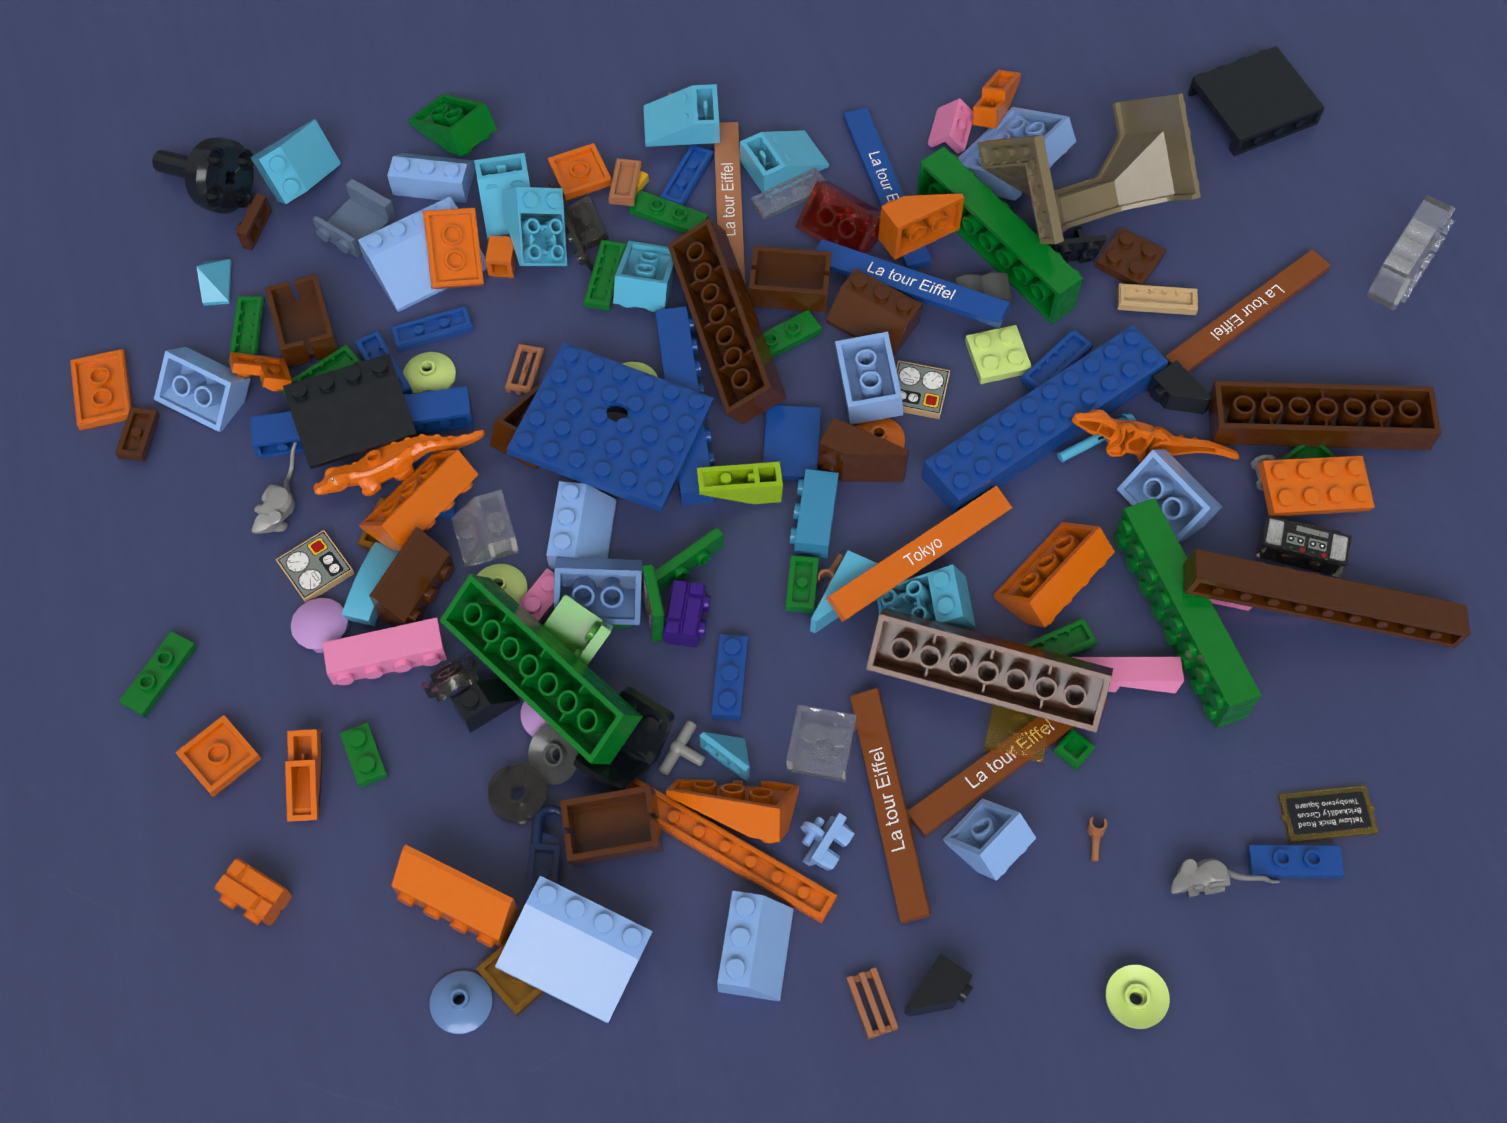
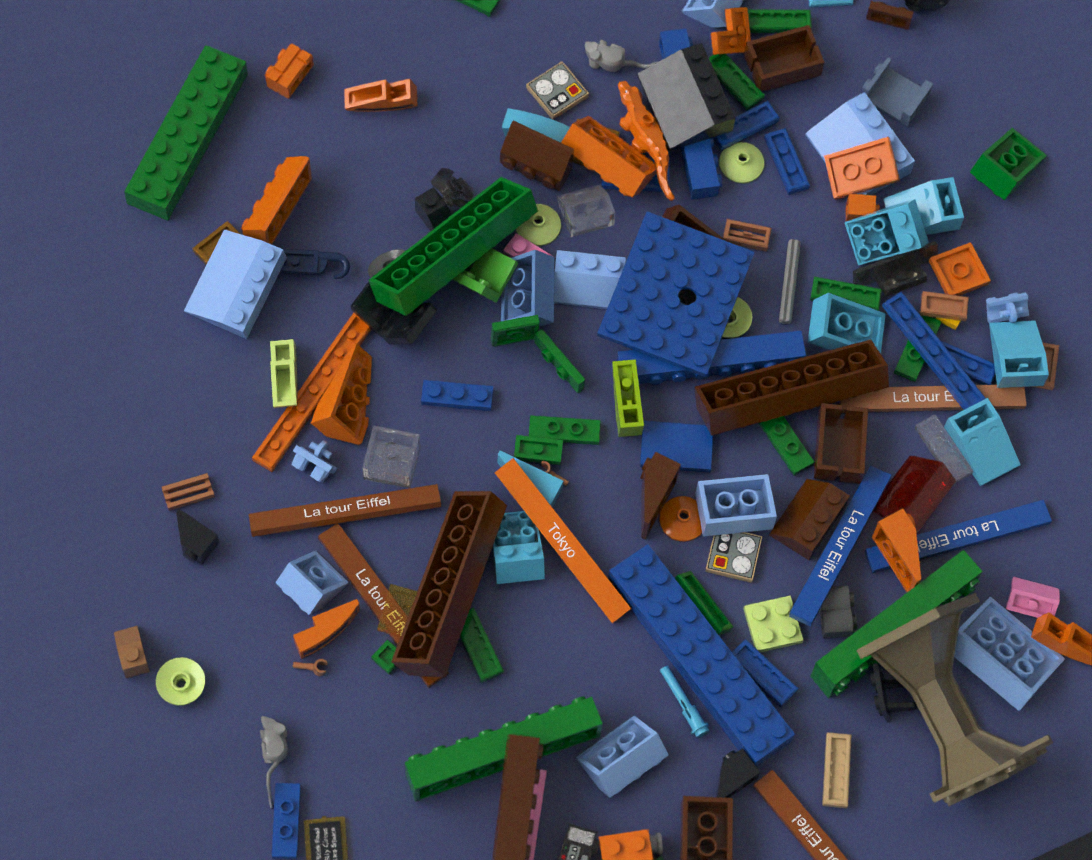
camera: 85 degrees right, 5 degrees up
(218, 755) = (397, 38): orange plate -> none
(296, 162) = (948, 39): medium azure slope -> none
(318, 622) = (506, 94): lavender dish -> none
(338, 1028) = (186, 133): none -> green brick
(363, 755) = (396, 136): green plate -> none
(384, 651) = (479, 142): bright pink brick -> none
(431, 177) = (950, 148): light blue slope -> none
(469, 1014) = (207, 222): medium blue dish -> none
(519, 810) = (358, 231): clear smoke plate -> none
(586, 328) = (789, 282): none -> light grey axle
(611, 826) = (326, 305): reddish brown piece -> none
(628, 128) = (1007, 308): none -> light blue hips
(679, 194) = (933, 351): none -> blue tile
(679, 748) = (395, 357): light grey piece -> none
(685, 614) = (510, 360): dark purple brick -> none
(705, 881) = (284, 373): none -> yellowish green slope
(729, 751) = (390, 394): medium azure slope -> none
(755, 947) = (233, 408): light blue slope -> none
(773, 559) = (566, 429): none -> green plate
(814, 513) = (604, 461): dark azure brick -> none
(980, 415) = (704, 602): none -> green plate
(1049, 819) = (326, 628): none -> orange slope
(1055, 573) = (546, 651): orange slope -> none
(1101, 1064) = (131, 652): none -> medium nougat slope
(1130, 258) = (885, 752): reddish brown plate -> none
(1142, 438) = (678, 737): orange animal -> none
(1145, 673) = (452, 700): bright pink slope -> none

